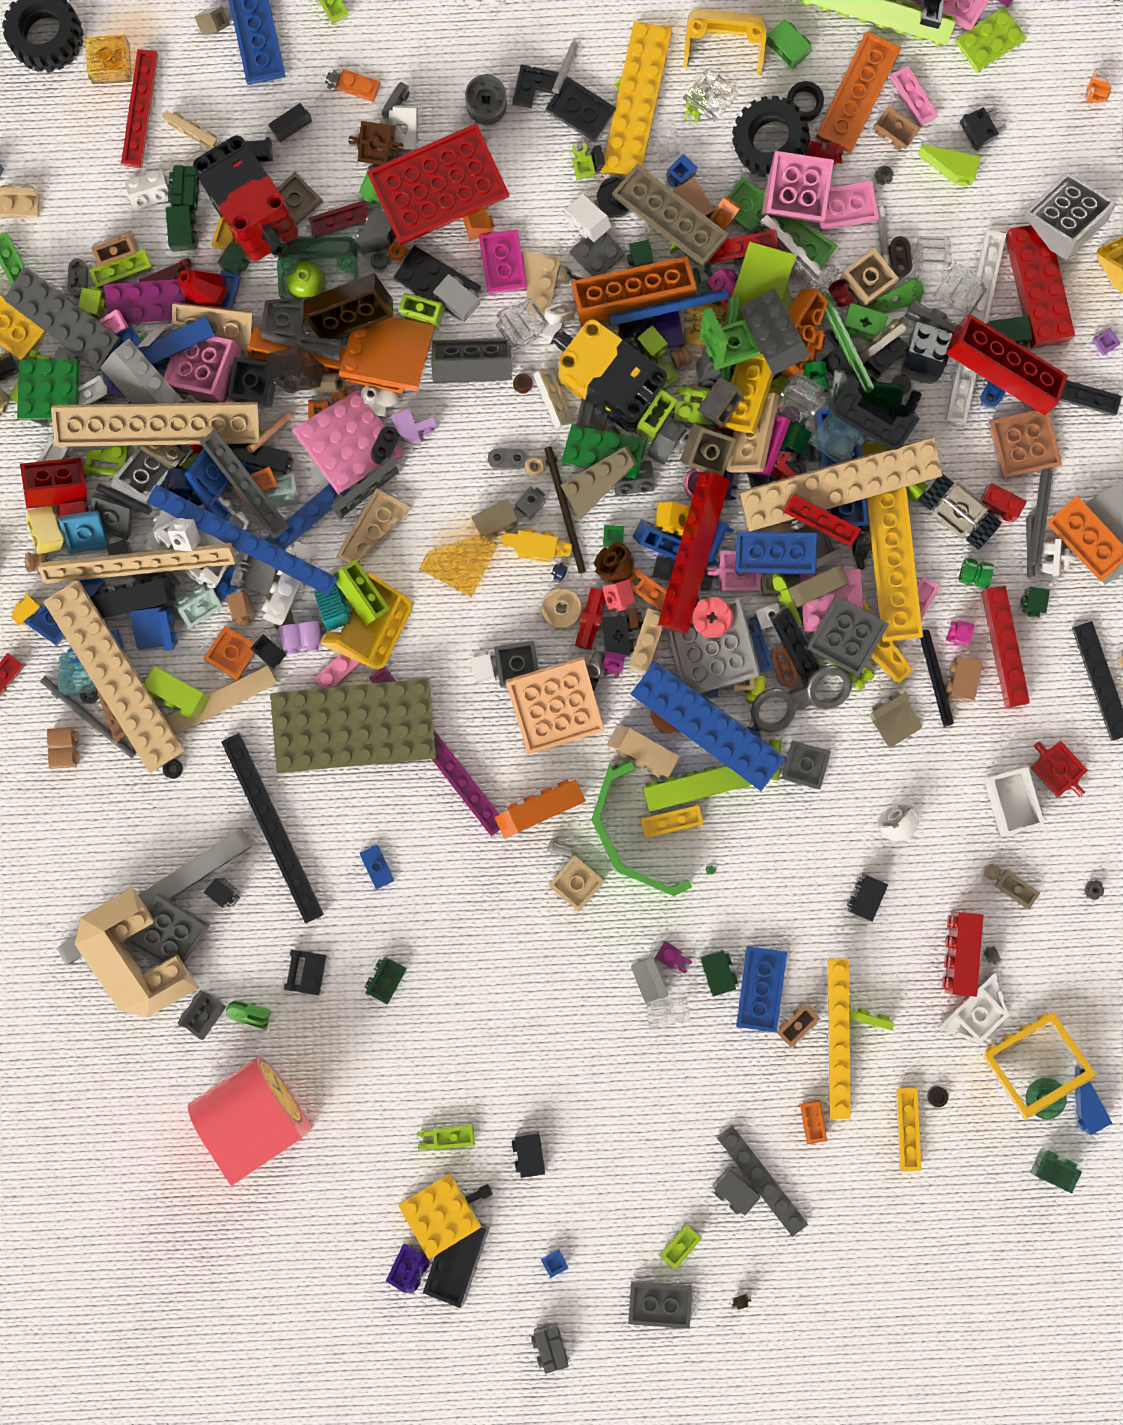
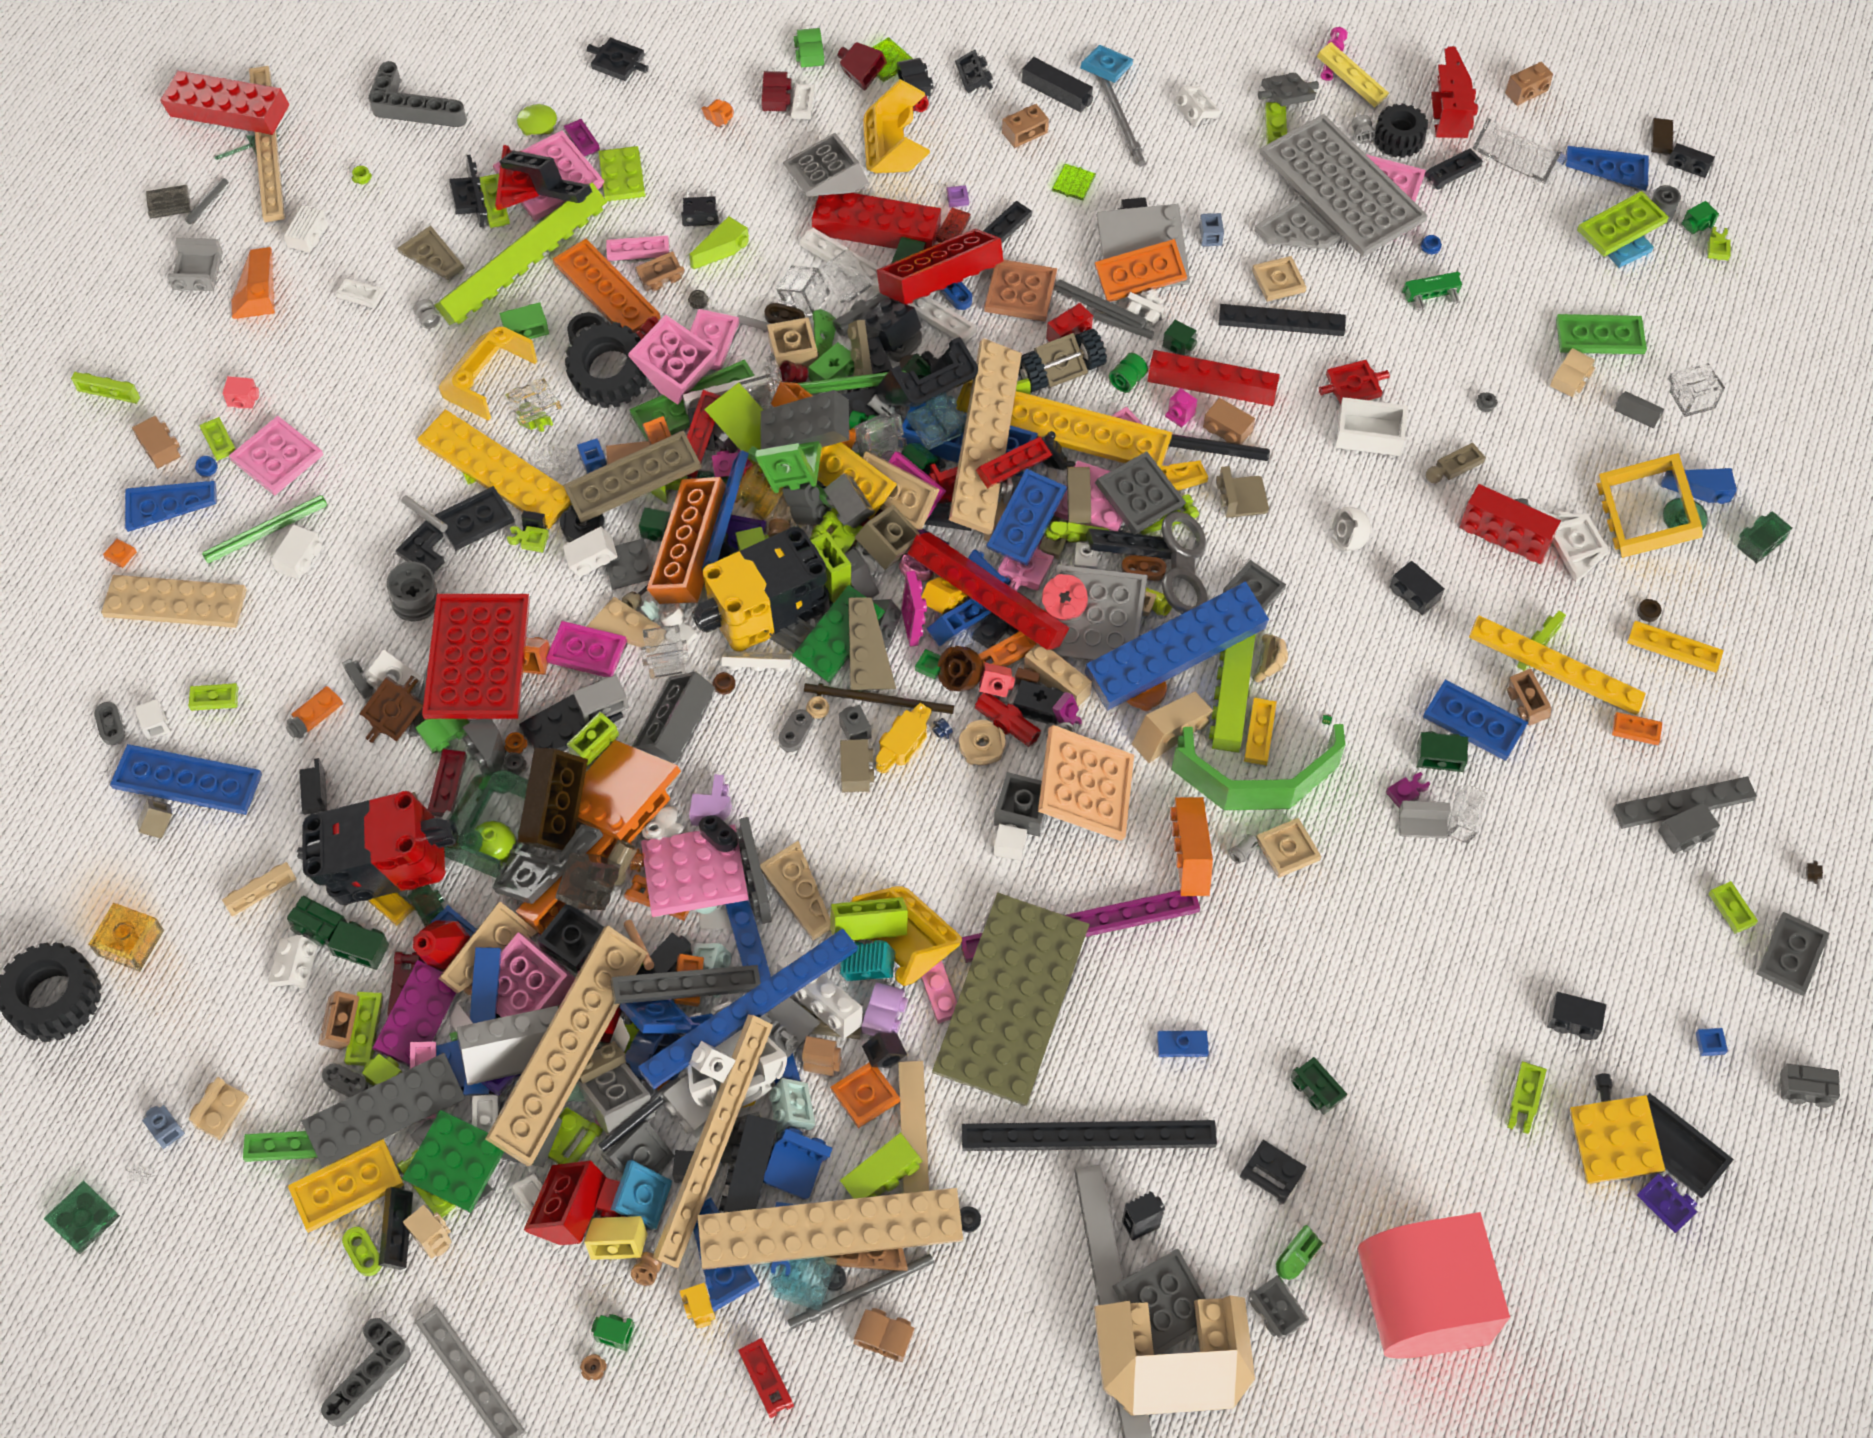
camera: 65 degrees left, 25 degrees down
(139, 108) = (200, 932): red plate -> none
(460, 562) = (884, 815): clear yellow plate -> none
(560, 293) = (650, 610): none -> light aqua plate
(652, 498) = (913, 608): none -> dark pink plate
(746, 805) = (1273, 658): none -> tan piece
(1067, 354) = (953, 225): none -> clear red plate

